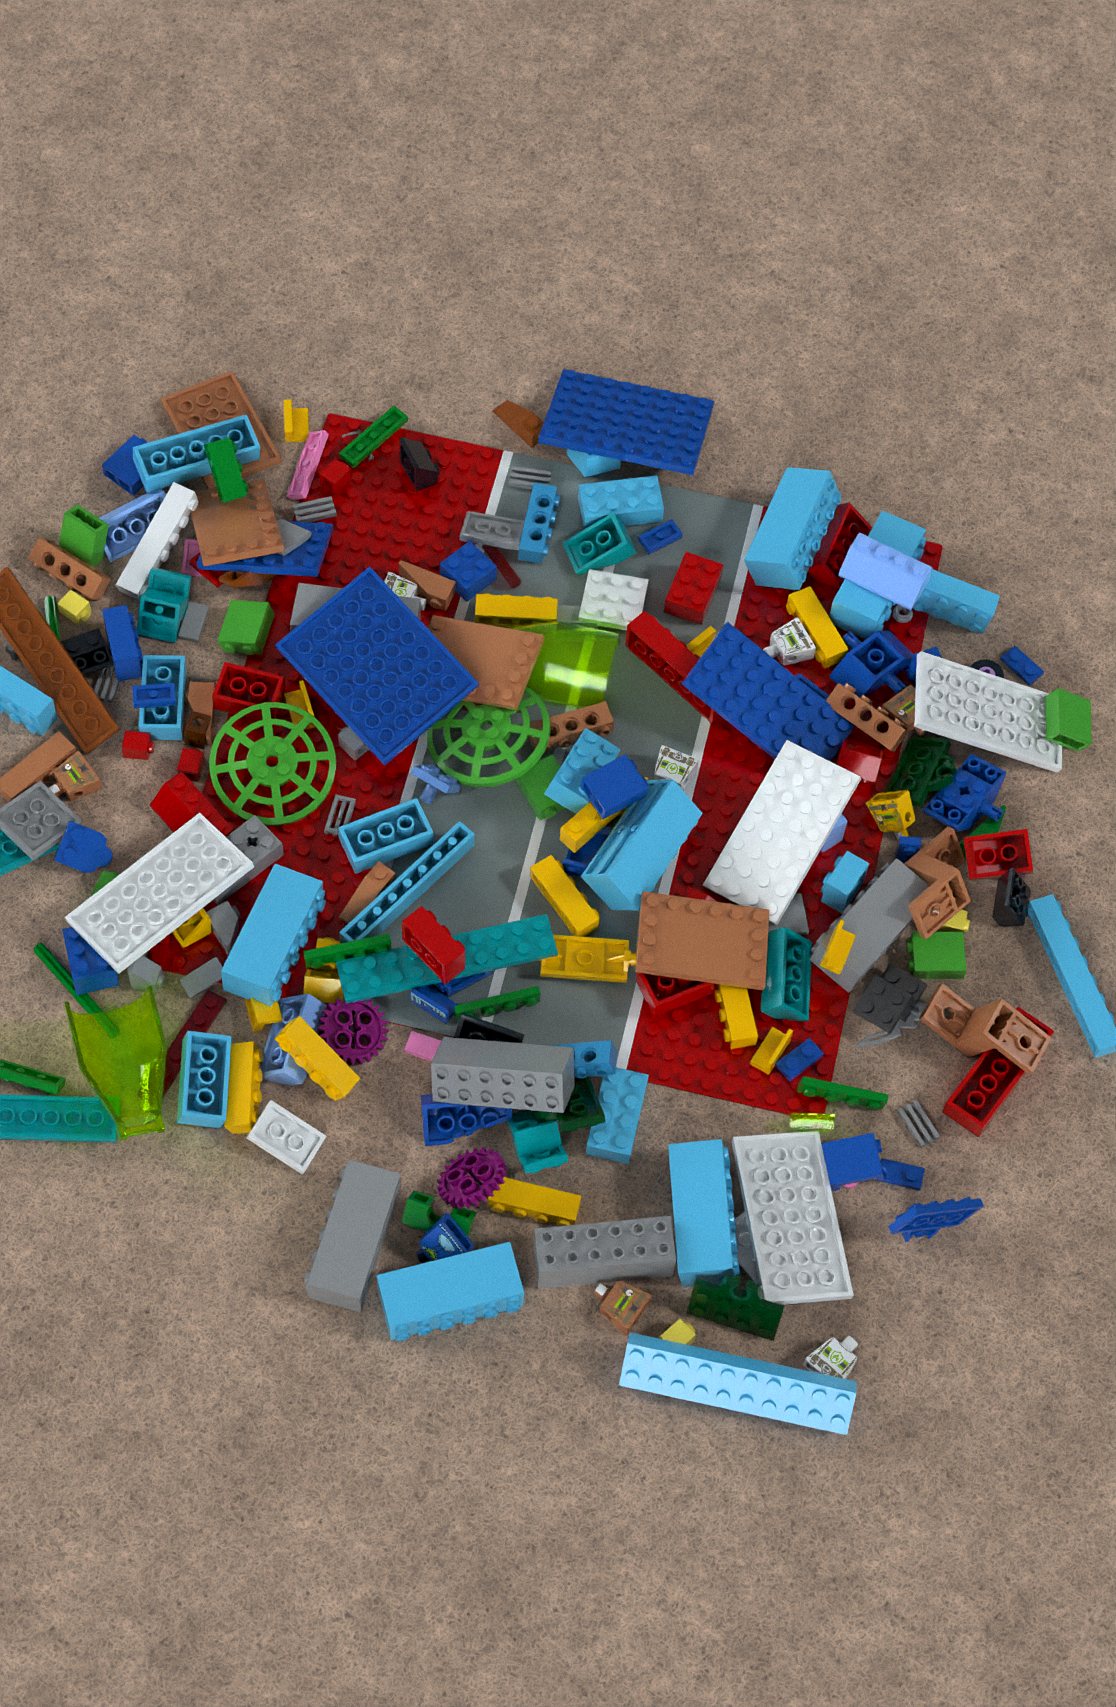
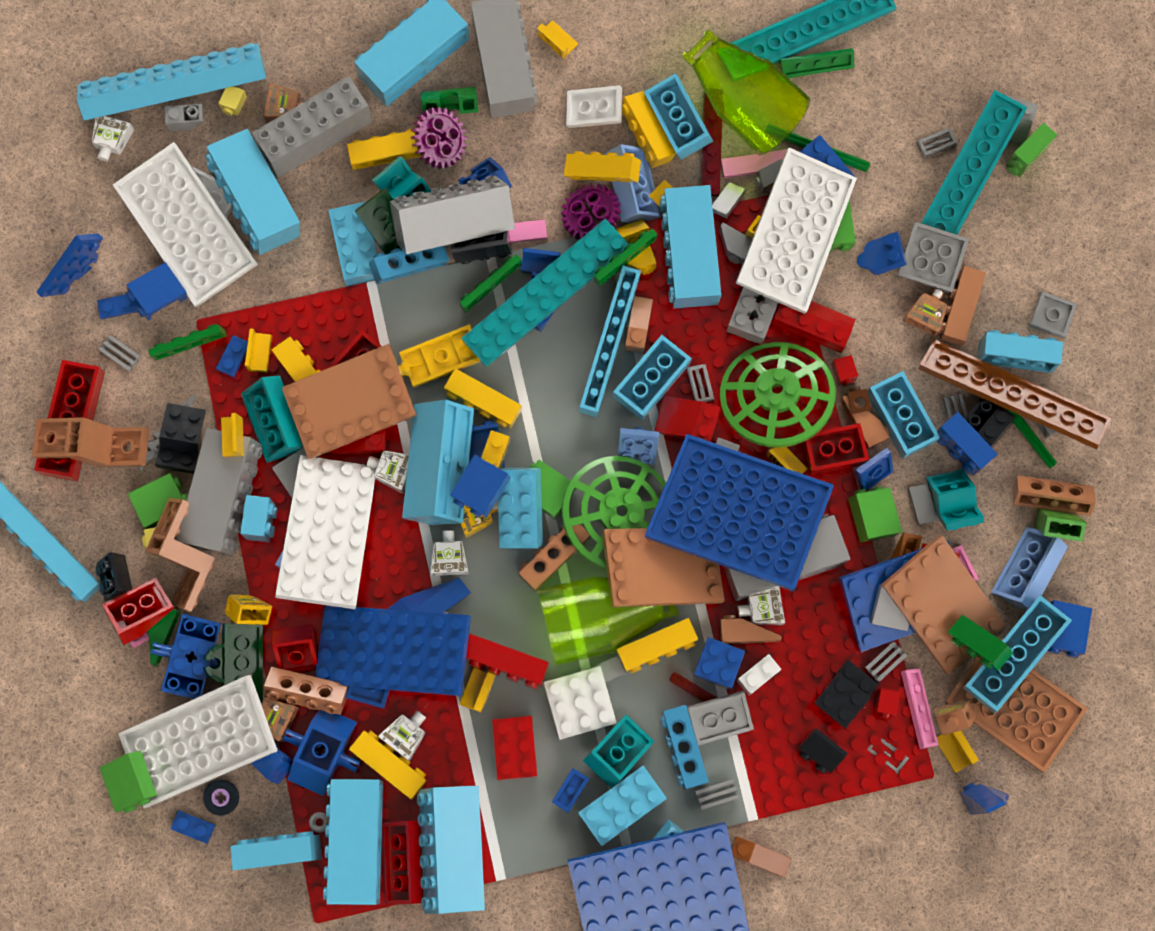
camera: 155 degrees right, 15 degrees up
(74, 607) = (1026, 463): light yellow brick -> none
(137, 745) = (897, 364): red brick -> none
(154, 695) = (907, 400): blue plate -> none
(157, 540) = (997, 556): white brick -> none
(168, 1009) = (749, 163): none -> bright pink tile
(218, 660) = (875, 470): none -> blue tile
(280, 1239) = (556, 38): none -> yellow panel
(283, 436) = (953, 716): none -> nougat torso
(297, 362) = (982, 799): none -> blue wedge
(368, 495) = (846, 694): none -> black bracket
(371, 783) = (685, 417): none -> red slope
(373, 436) = (878, 764): green plate -> none
(433, 944) = (556, 280): red brick -> none
(436, 546) = (758, 674): none -> white brick
(443, 1240) = (440, 82): blue torso -> none
(686, 871) = (390, 469): none -> torso
(714, 741) = (434, 599): none -> blue wedge
(735, 1306) = (196, 133): dark green plate -> none
(740, 1340) = (183, 117): none -> light grey slope
(807, 1121) = (202, 310): clear neon green plate -> none
(885, 571) = (342, 828): light blue slope -> none
(907, 848) = (218, 579): blue plate -> none

